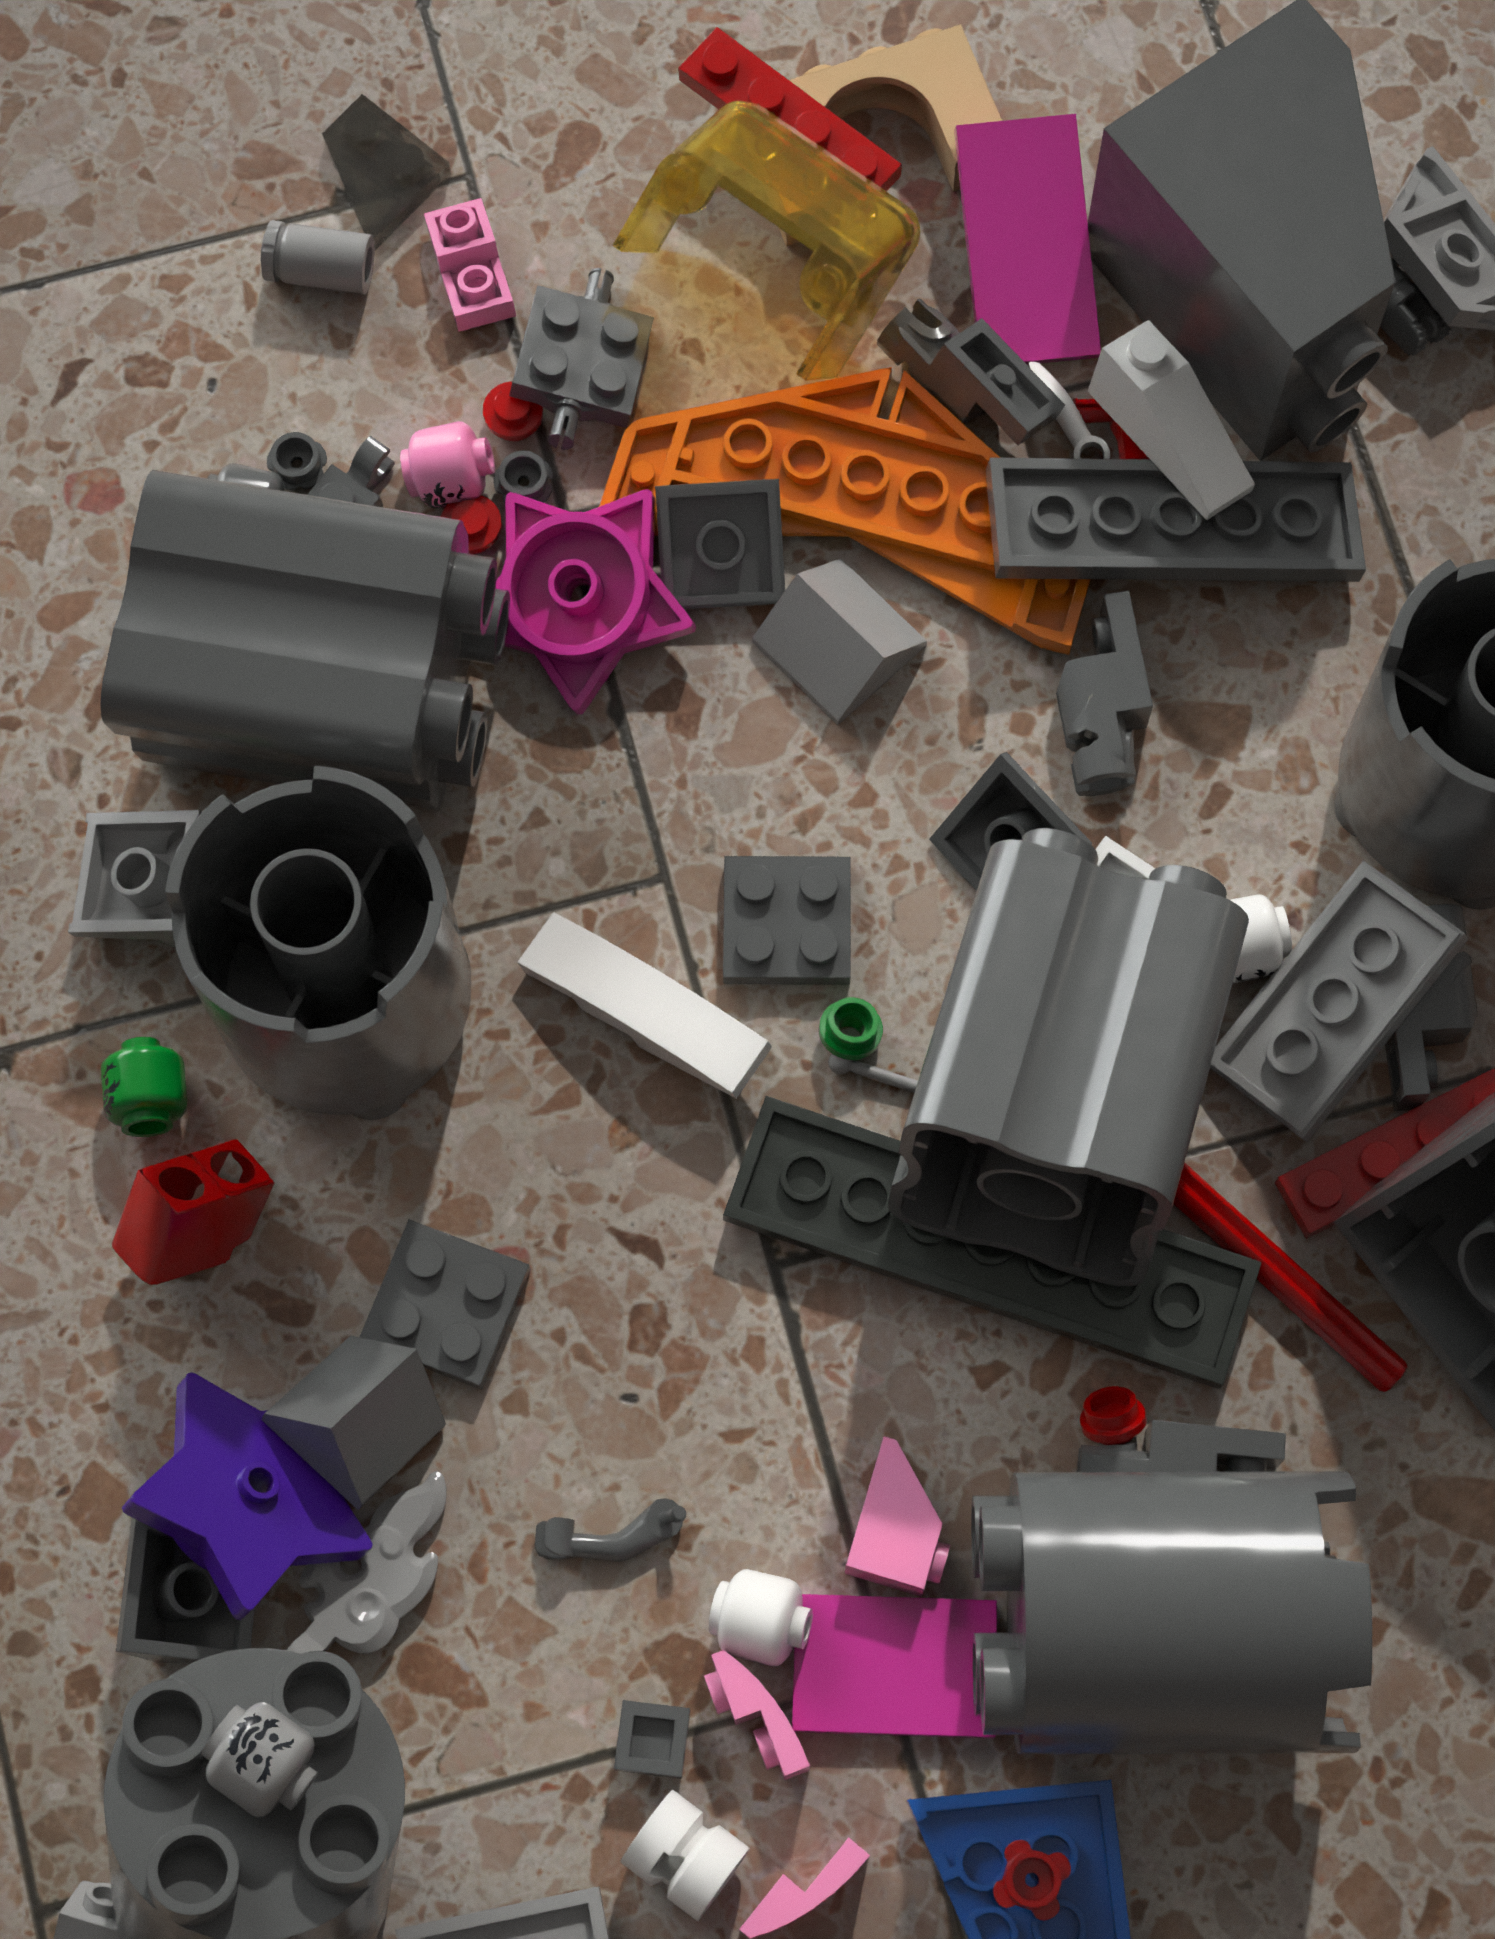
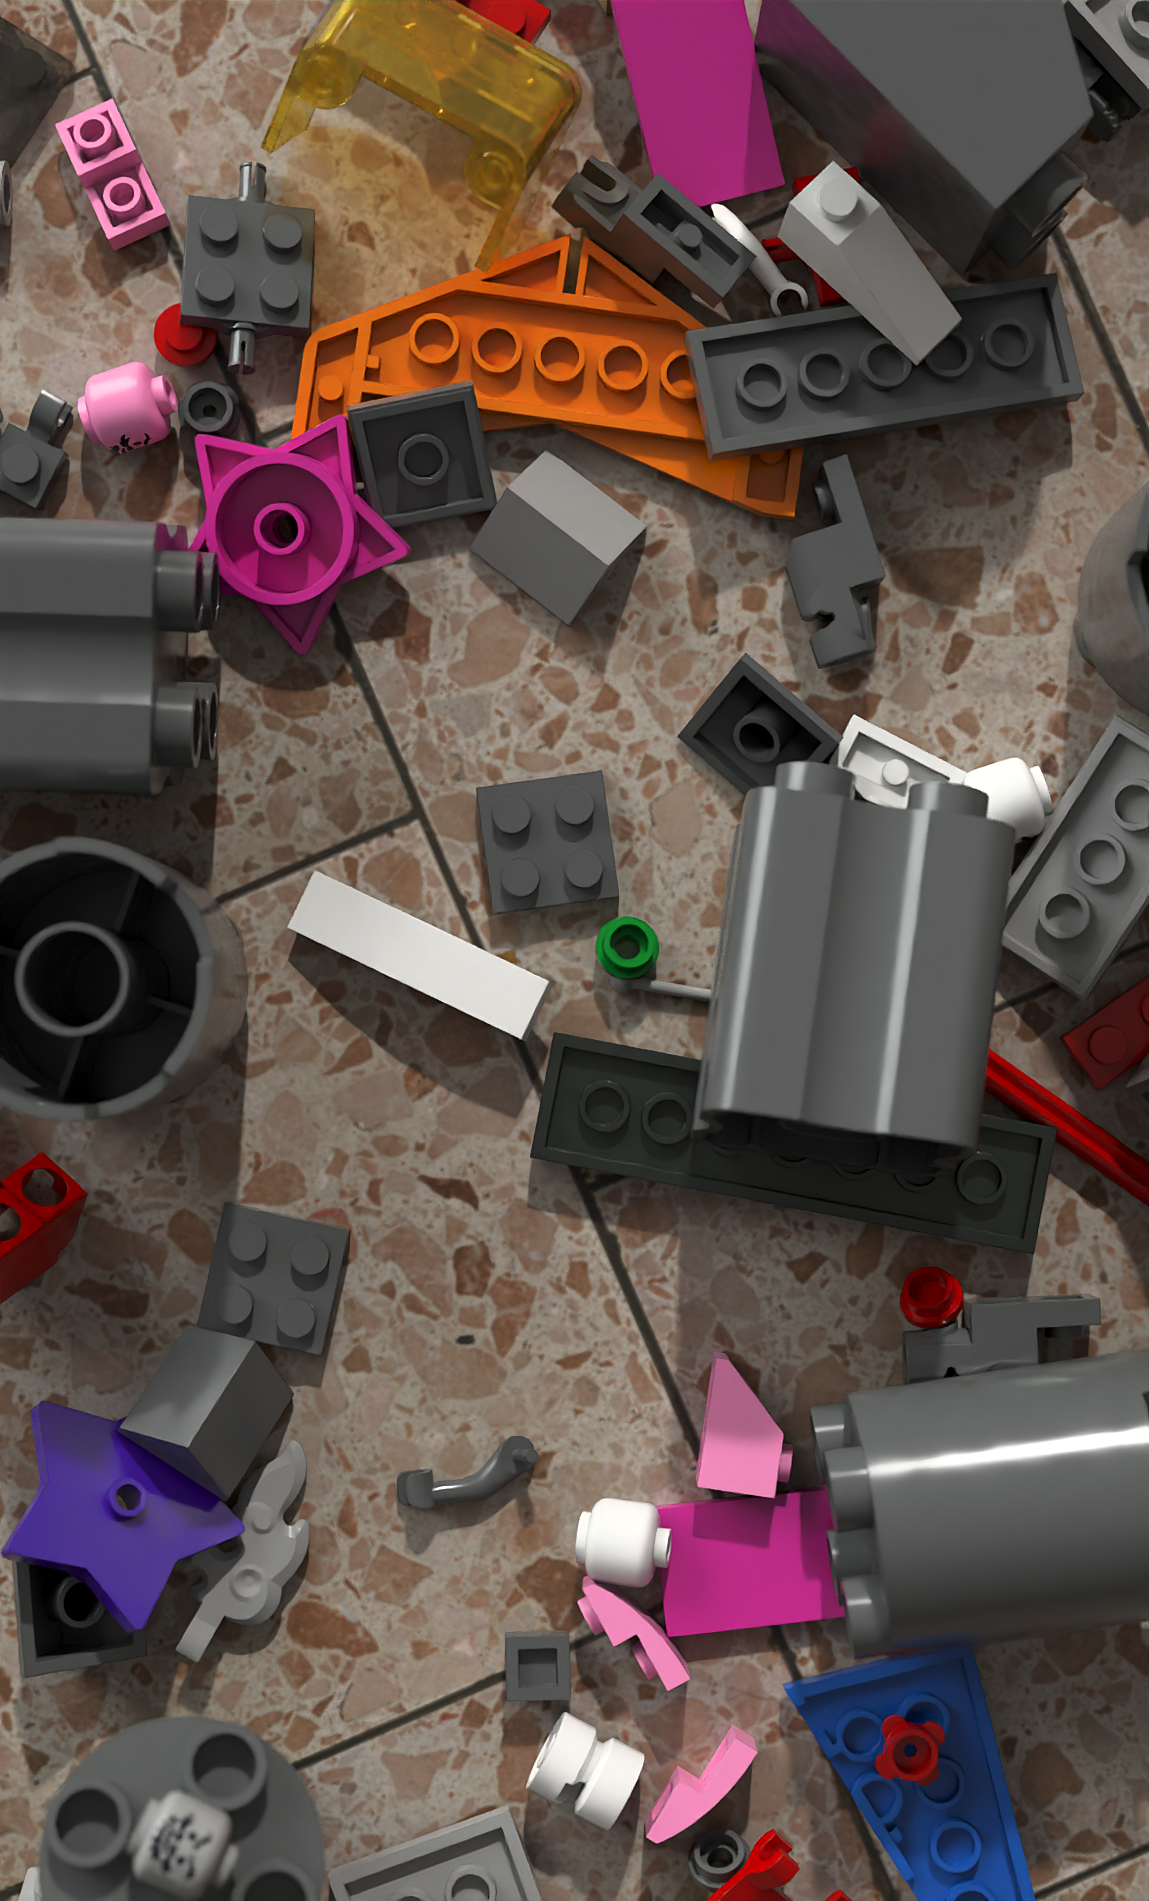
camera: 10 degrees left, 15 degrees up
(480, 519) = (163, 467): red plate -> none

